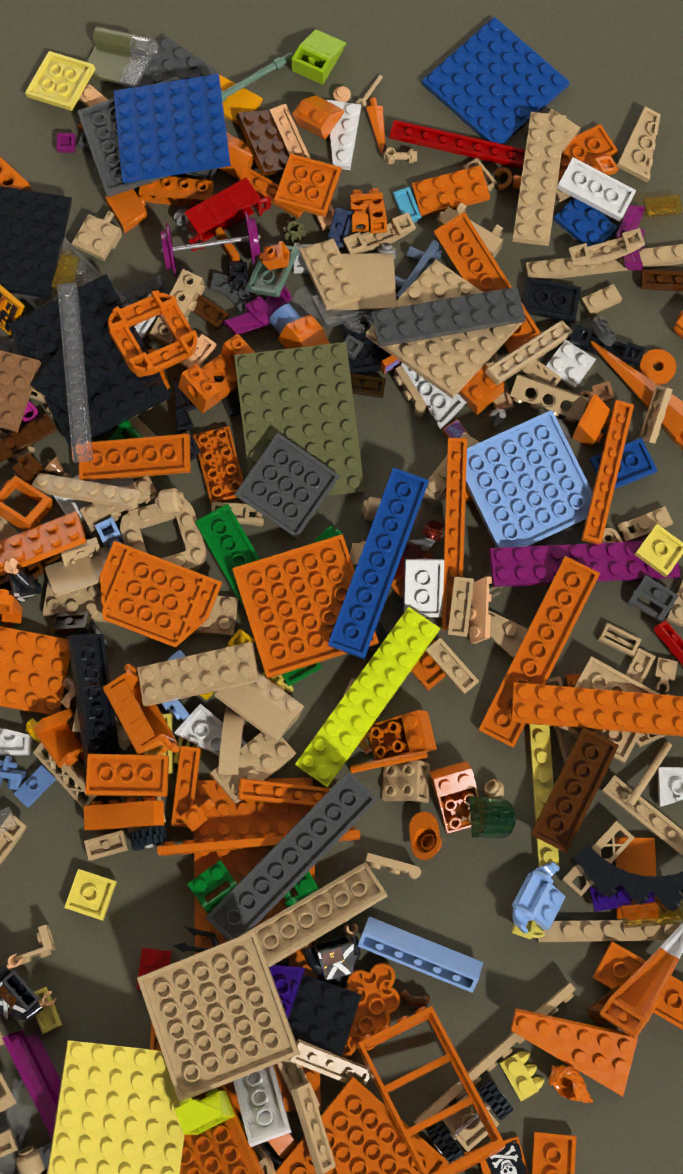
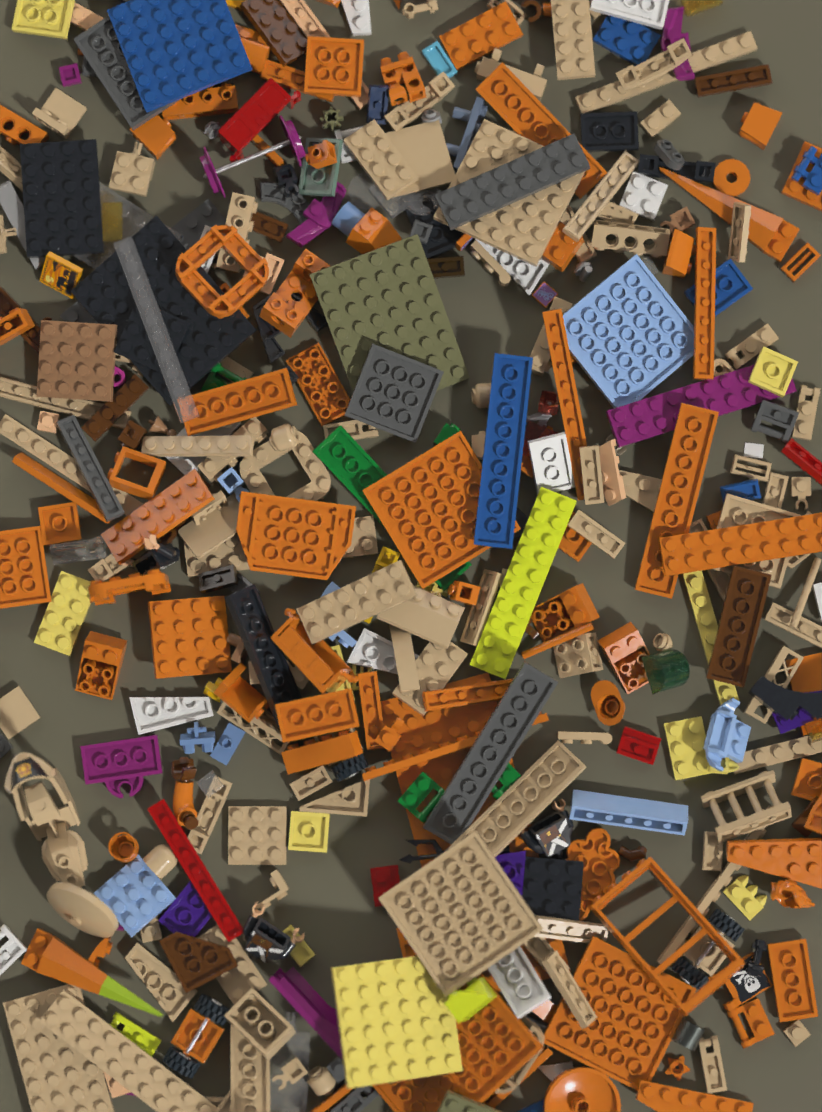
camera: 15 degrees left, 10 degrees up
(38, 886) = (257, 835): none -> tan plate
(46, 173) = (60, 113): none -> tan bracket
(138, 873) = (347, 801): none -> tan wing
(313, 694) = (469, 592): none -> orange brick
(321, 711) = (480, 612): none -> tan plate
(446, 888) = (638, 745): none -> red plate
(494, 902) = (685, 747): none -> light yellow plate
(498, 1017) = (712, 852): none -> tan plate
(515, 1153) = (754, 967): none -> black bar
(546, 995) = (744, 824): none -> tan fence
(612, 658) = (746, 489): none -> blue plate
(626, 624) = (753, 450): none -> white sticker

